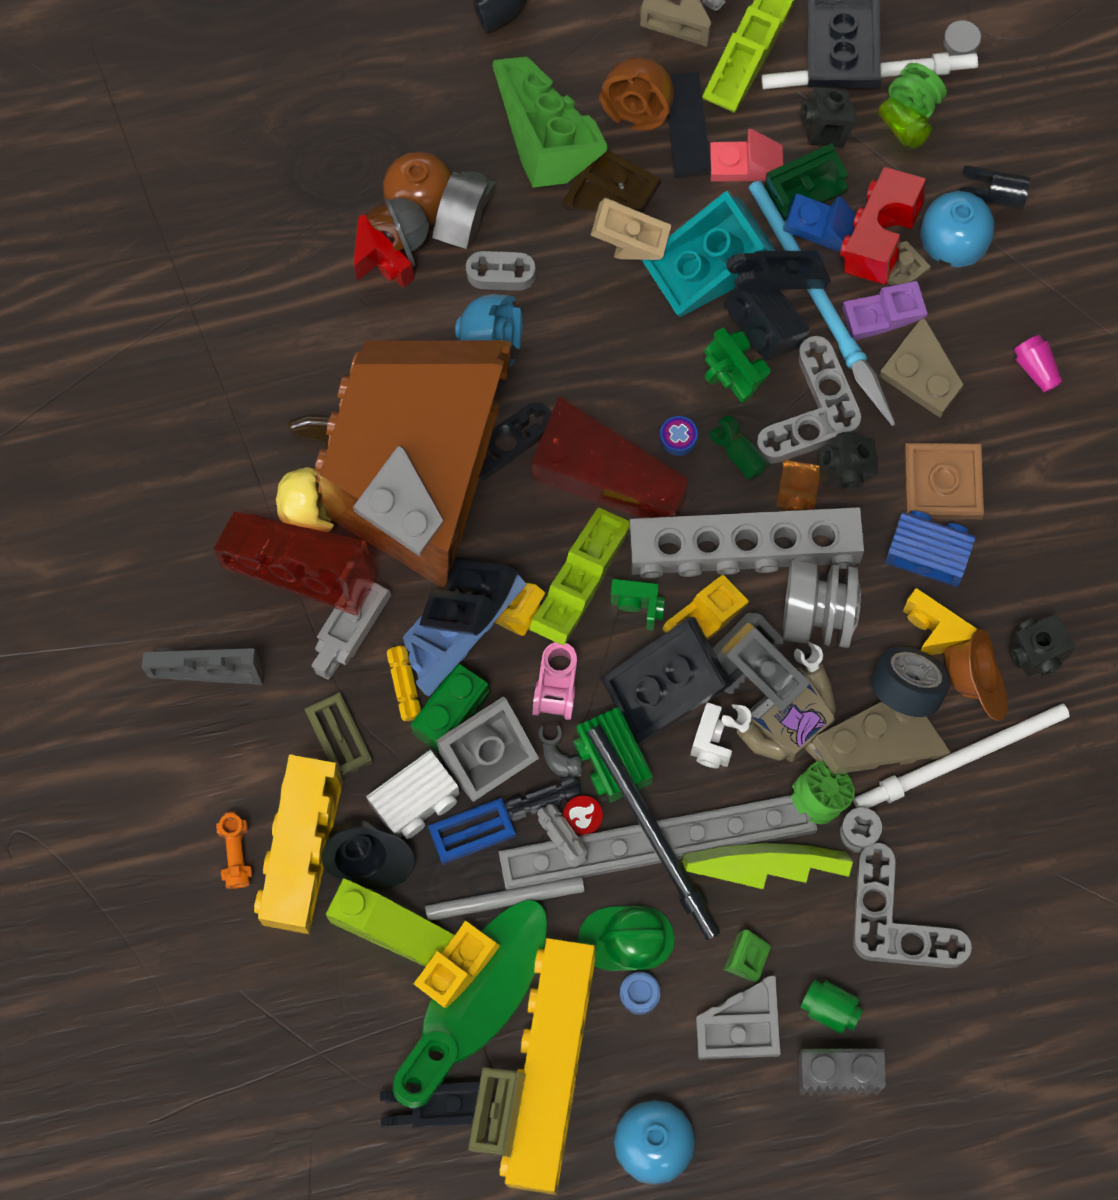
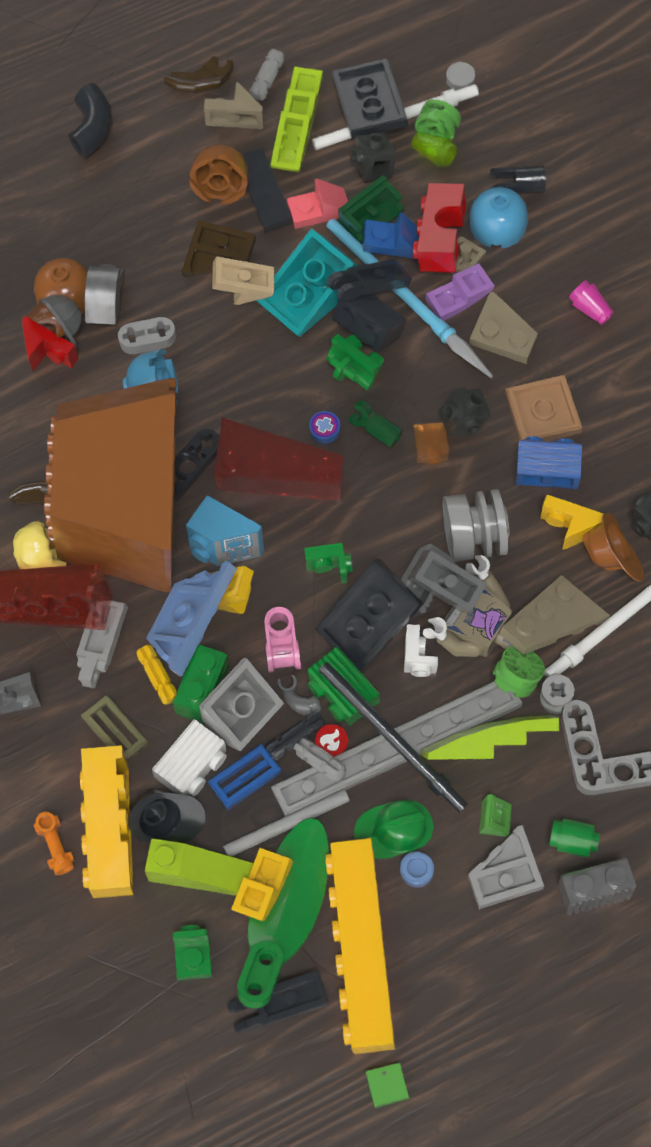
camera: 15 degrees left, 5 degrees down
(357, 1021) = (192, 953): none -> green bracket
(400, 504) = (122, 521): light grey wing -> none
(469, 597) = (193, 589): black slope -> none
(502, 1115) = (342, 1017): olive tile -> none
(521, 537) = (223, 534): none -> dark azure slope
(547, 129) = (153, 218): bright green wedge -> none
(580, 576) = (277, 553): lime slope -> none
(654, 1142) = (462, 984): dark azure cylinder -> none
(712, 607) = (392, 548): yellow slope -> none
(823, 417) = (436, 380): light grey beam -> none
(840, 525) = (471, 463): light grey brick -> none
(910, 681) = (563, 567): black wheel -> none

